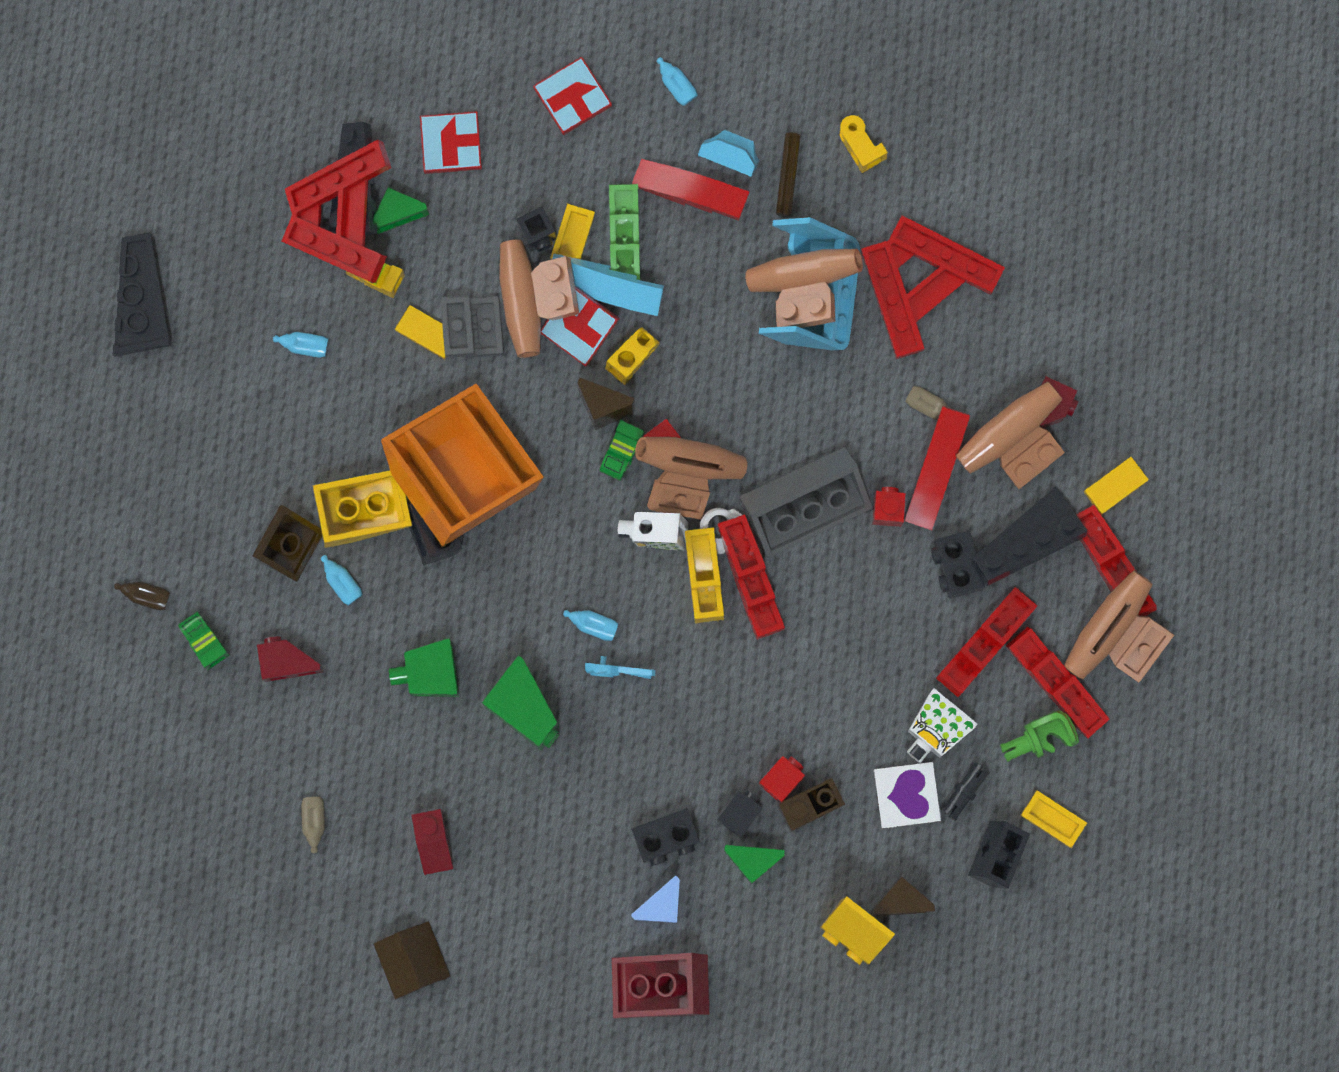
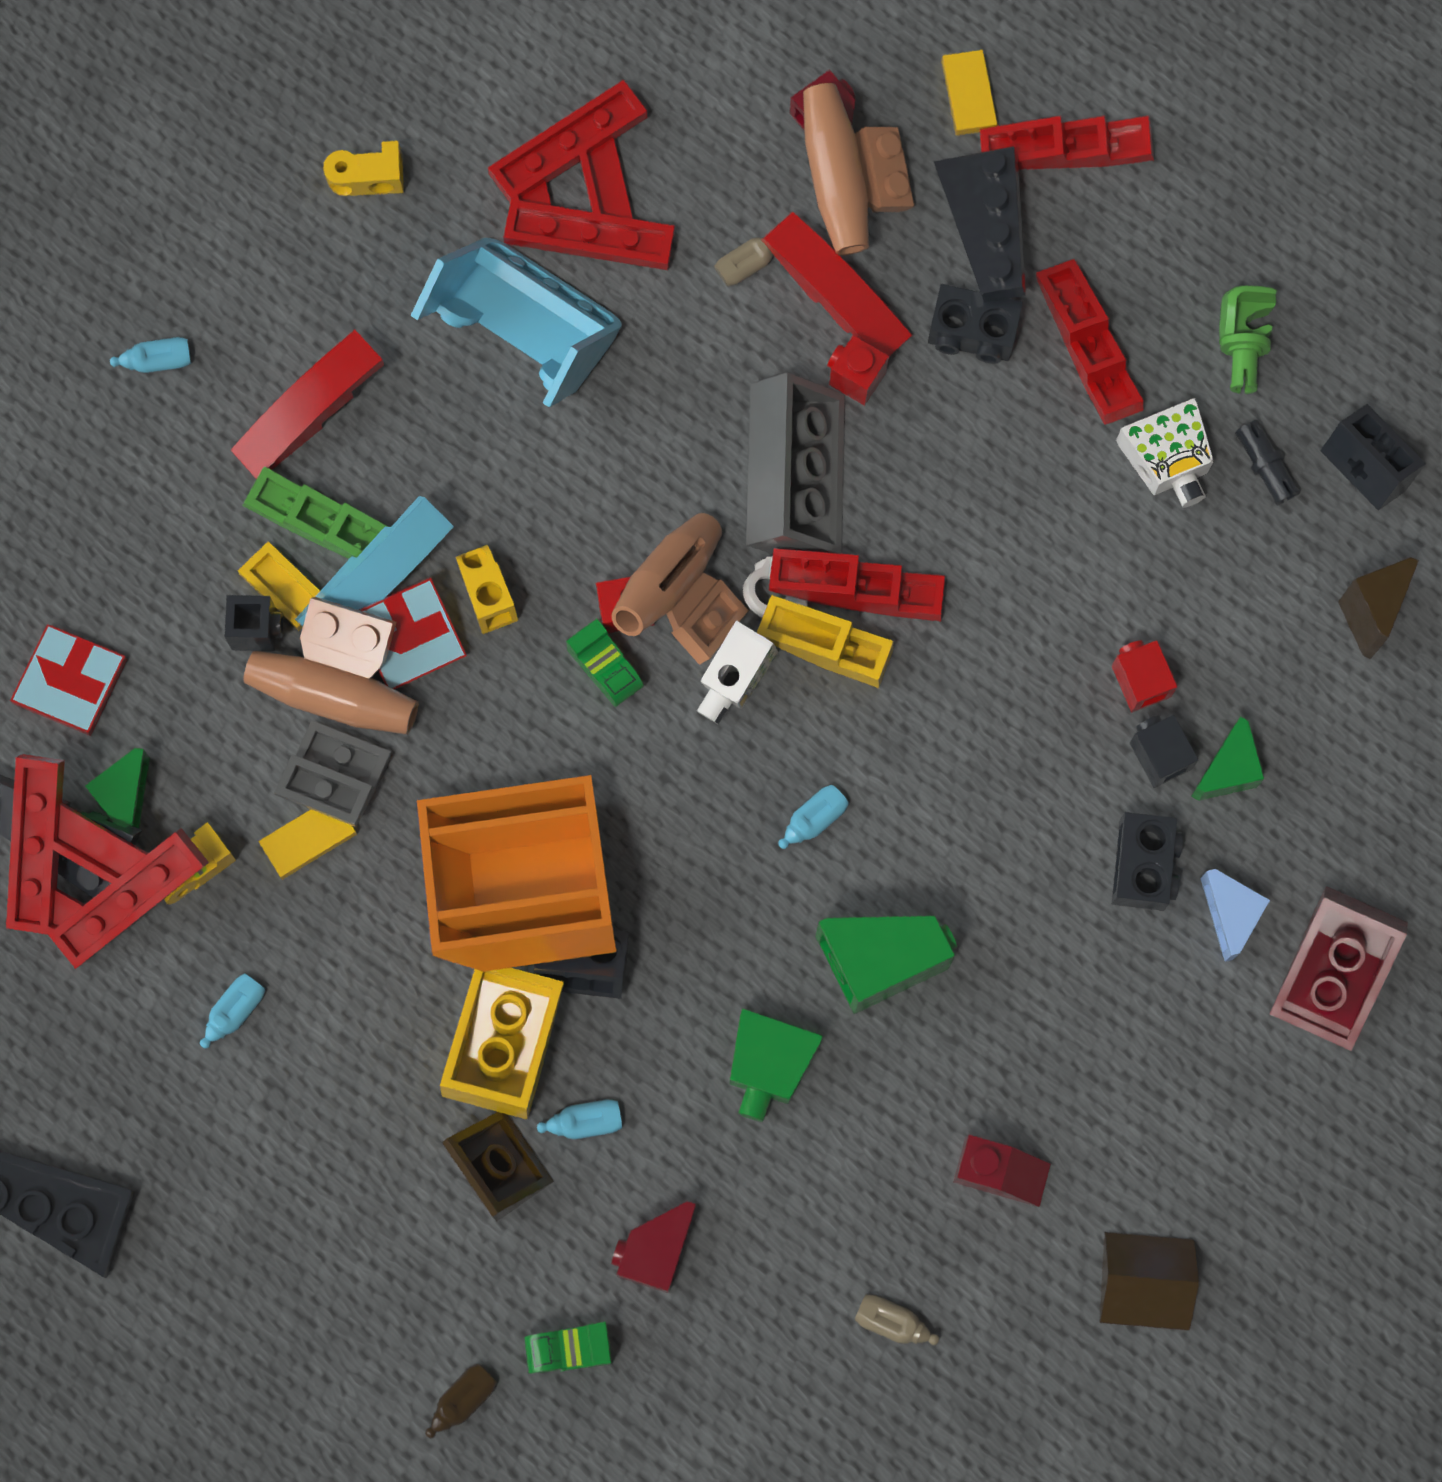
camera: 65 degrees left, 5 degrees down
(572, 96) = (96, 494): tile -> none
(604, 404) = (530, 653): dark brown slope -> none
(611, 670) = (890, 824): medium azure piece -> none
(731, 152) = (286, 332): medium azure slope -> none
(788, 174) = (355, 280): dark brown axle -> none
(804, 284) = (514, 322): nougat plate -> none
(811, 805) = (1196, 656): dark brown slope -> none
(856, 931) = (1391, 675): yellow slope -> none
(907, 795) = (1237, 535): tile -> none
(1053, 819) = (1354, 375): yellow tile -> none
(1057, 682) = (1181, 283): red slope -> none
(1121, 633) = (1162, 174): nougat plate -> none

